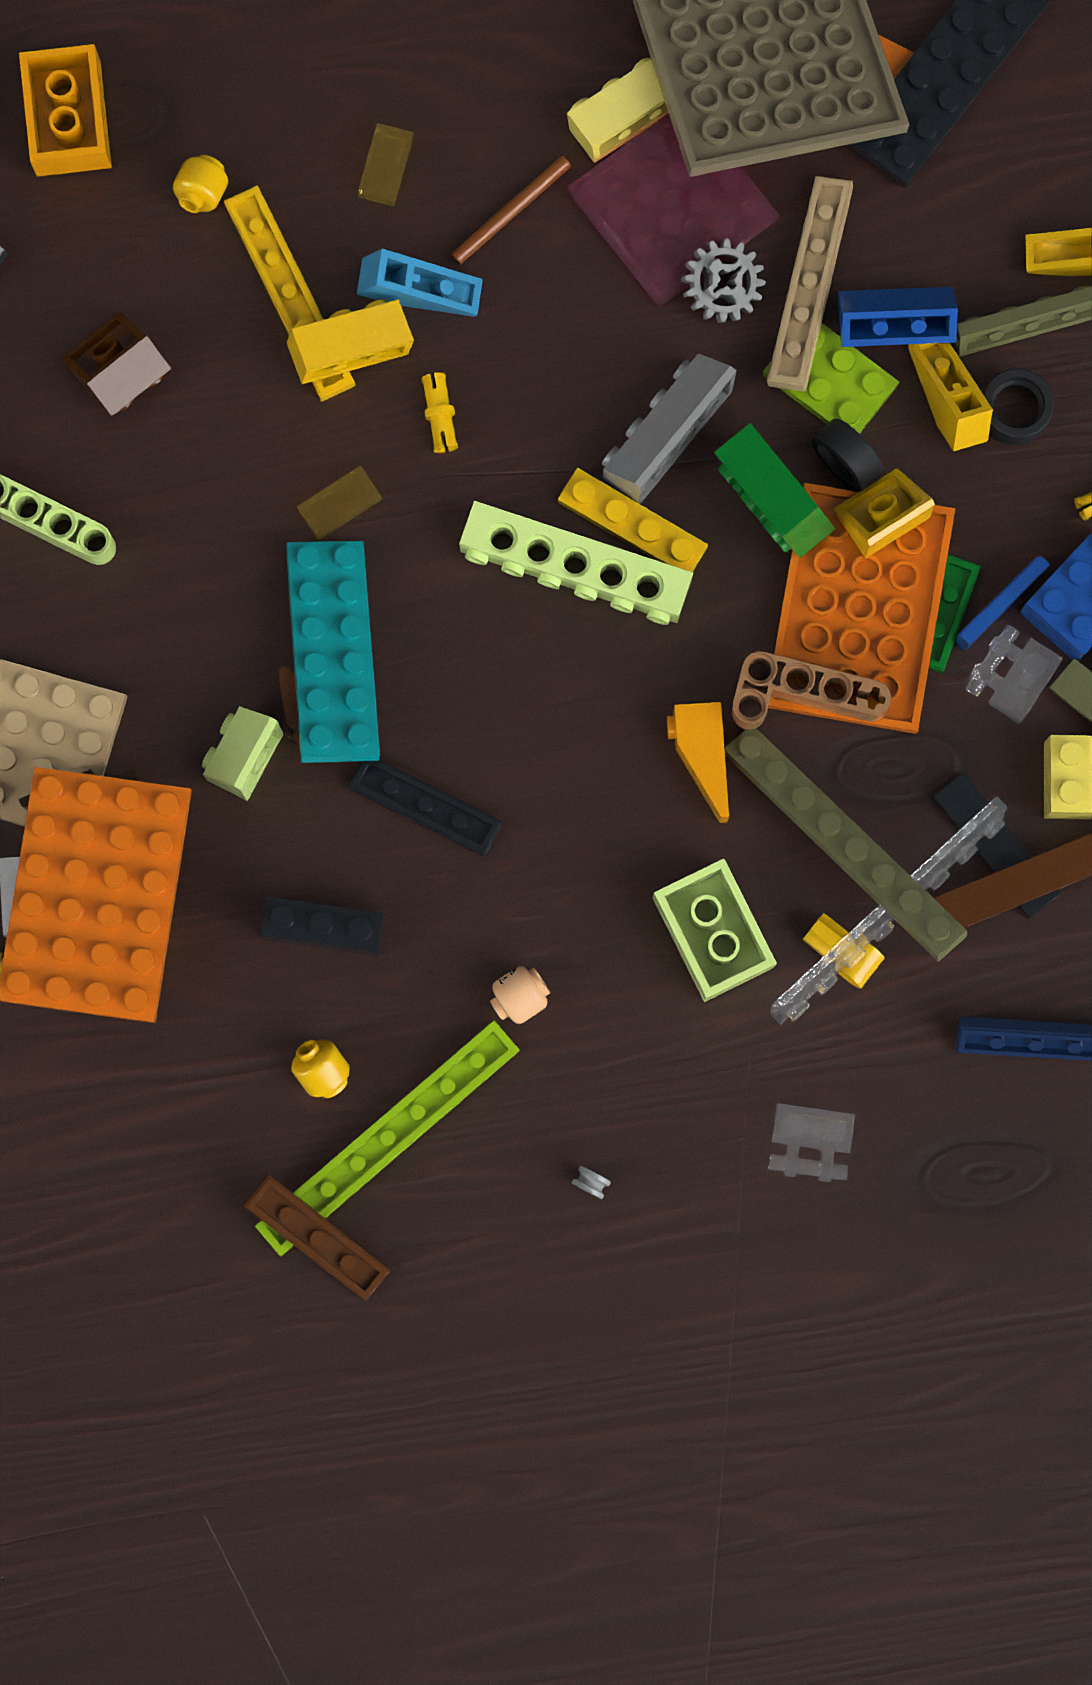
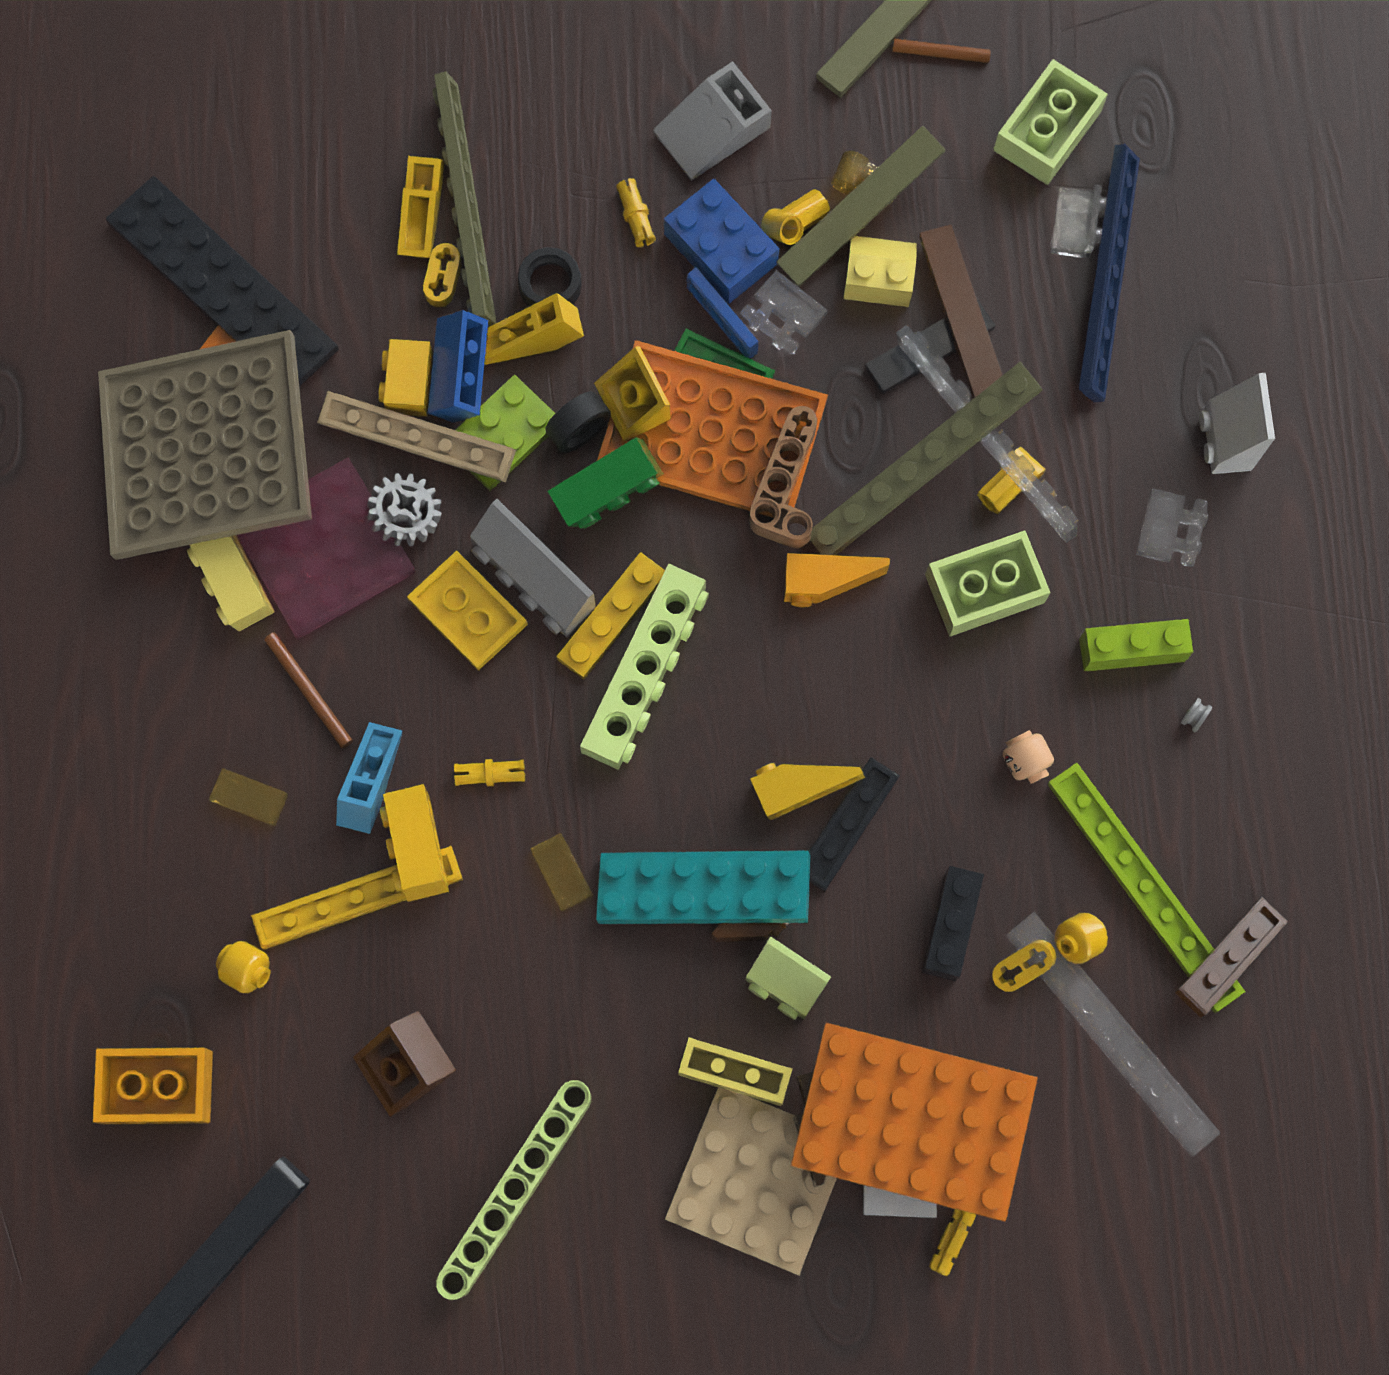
camera: 85 degrees left, 5 degrees down
(137, 706) = (735, 1071): none -> light yellow brick
(218, 1118) = (1119, 1041): none -> clear plate
(289, 1004) = (1020, 959): none -> yellow beam
(456, 734) = (793, 786): none -> yellow slope
(618, 365) = (467, 610): none -> yellow plate
(663, 1106) = (1136, 645): none -> lime brick
(879, 262) = (407, 377): none -> yellow brick
(933, 1198) = (1238, 426): none -> white slope
(1009, 279) = (435, 273): none -> yellow beam

